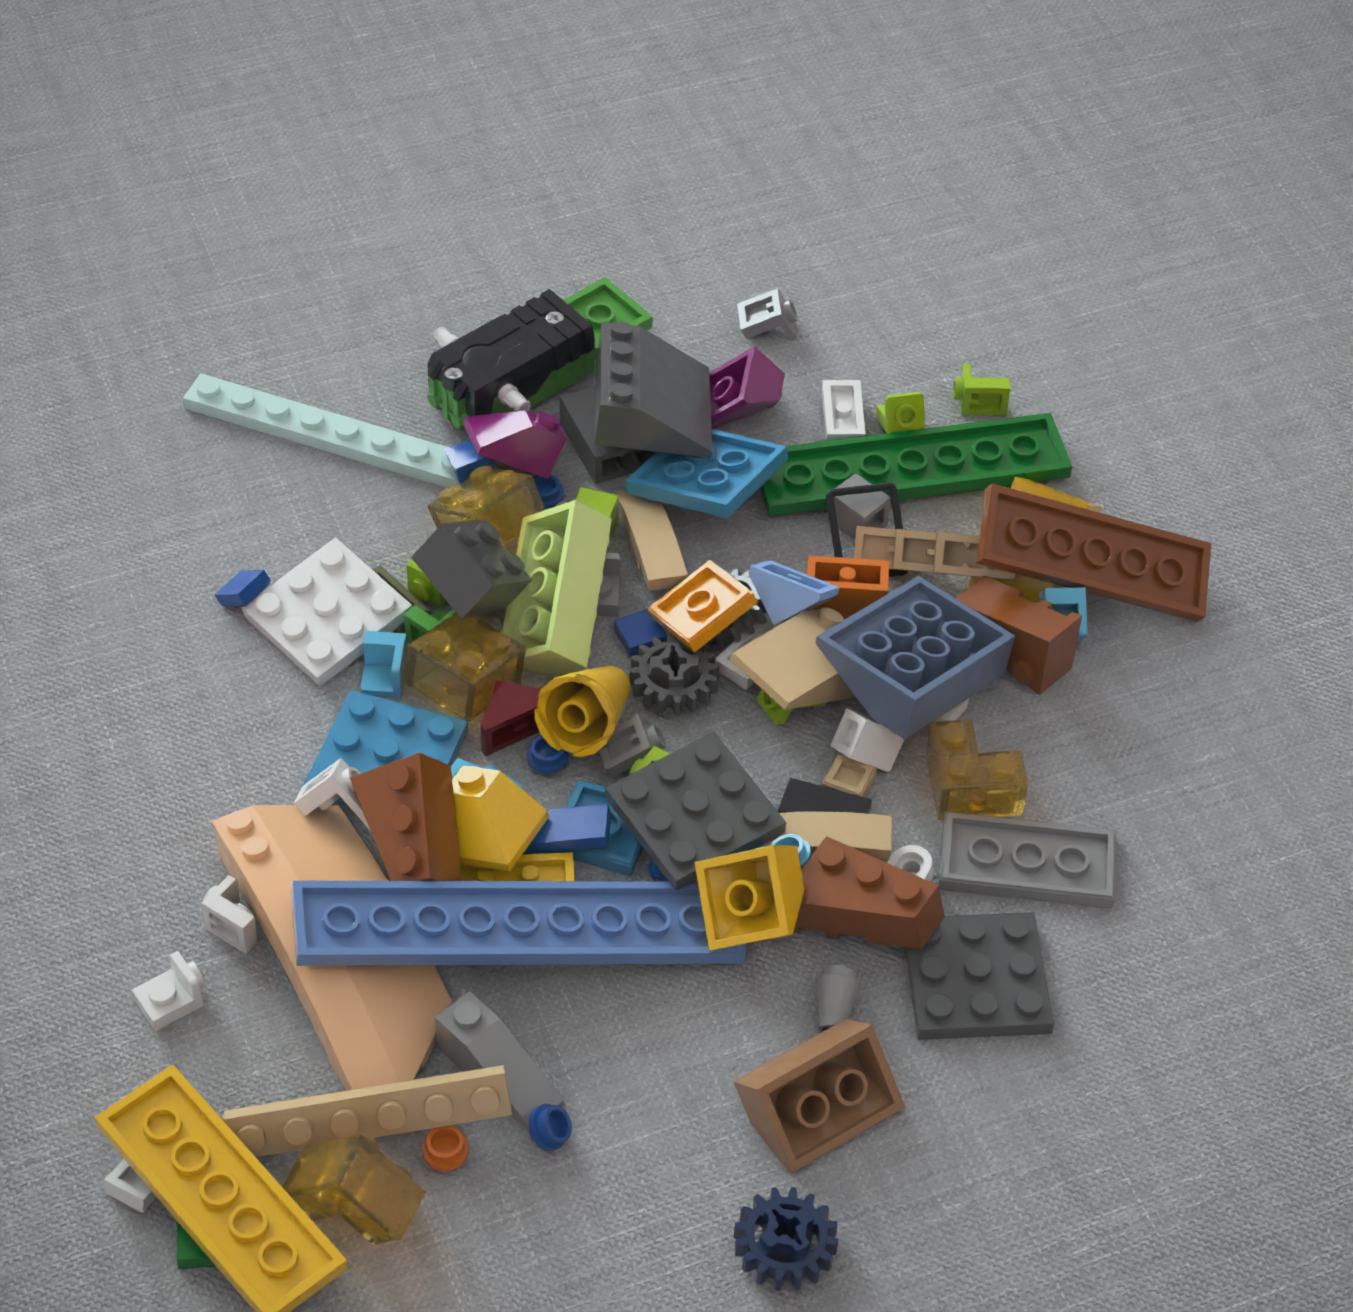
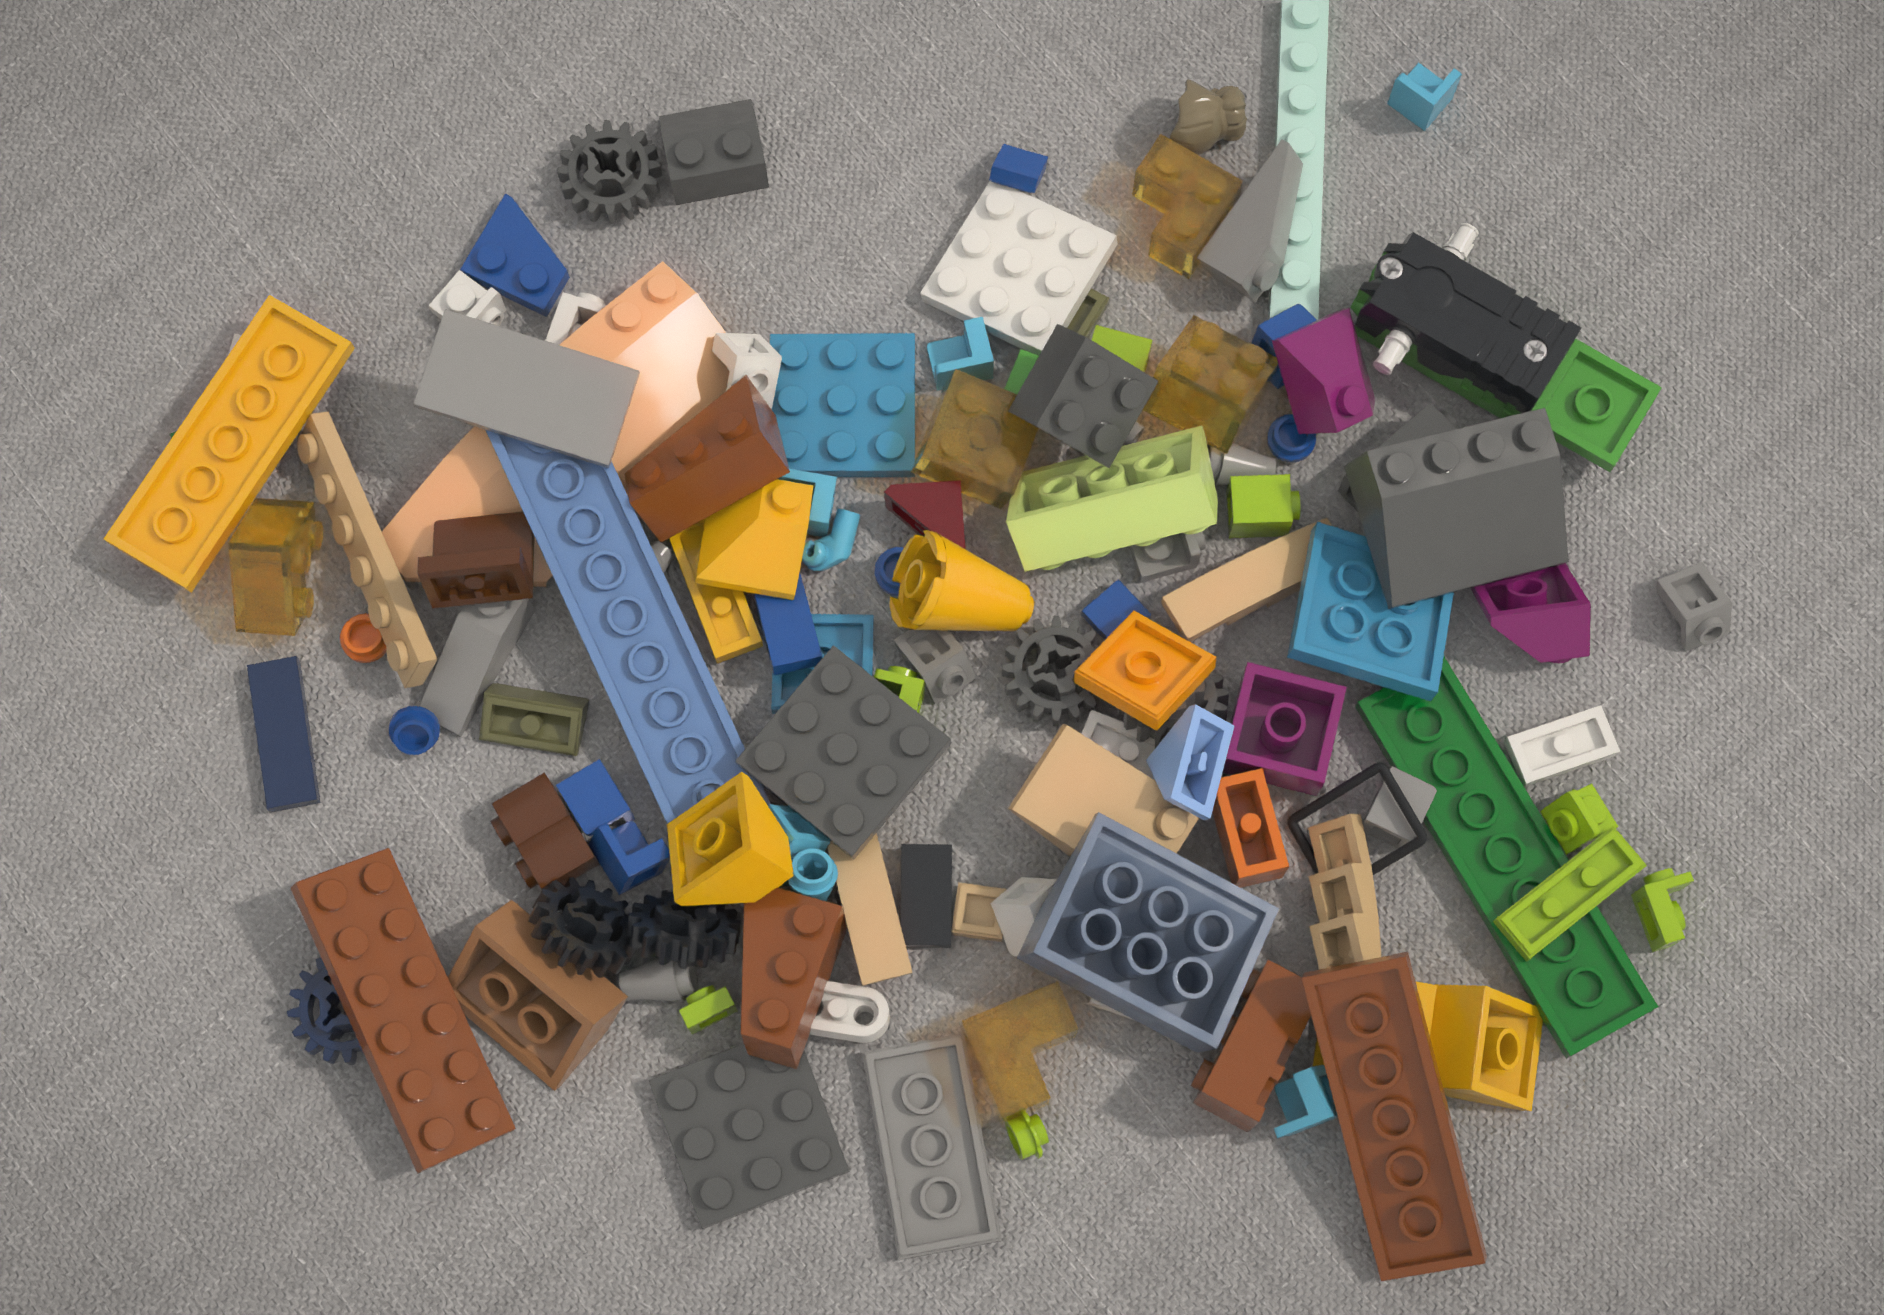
camera: 75 degrees right, 25 degrees up
(99, 855) = (609, 191): none -> dark grey gear
(117, 778) = (713, 152): none -> dark grey slope
(140, 948) = (516, 260): none -> blue wing
(262, 464) = (1209, 116): none -> dark tan hair
(300, 909) = (526, 388): none -> light grey tile
(312, 346) = (1423, 94): none -> medium azure panel
(325, 489) = (1190, 195): none -> clear yellow brick
(378, 454) = (1256, 231): none -> light grey slope
(430, 1002) = (479, 561): none -> reddish brown bracket
(508, 1237) = (283, 734): none -> dark blue tile
(572, 1040) = (533, 719): none -> olive slope
(663, 998) = (594, 798): none -> blue panel
(681, 1049) = (542, 833): none -> reddish brown brick
(726, 995) = (628, 856): none -> blue panel
(775, 533) = (1284, 727): none -> magenta brick
(778, 1027) = (583, 927): none -> black gear
(804, 958) = (683, 932): none -> black gear
(804, 1181) = (402, 1009): none -> dark orange plate
(873, 970) = (707, 1008): none -> lime plate
(957, 432) = (1569, 893): none -> lime tile
(1040, 793) = (1027, 1135): none -> lime plate

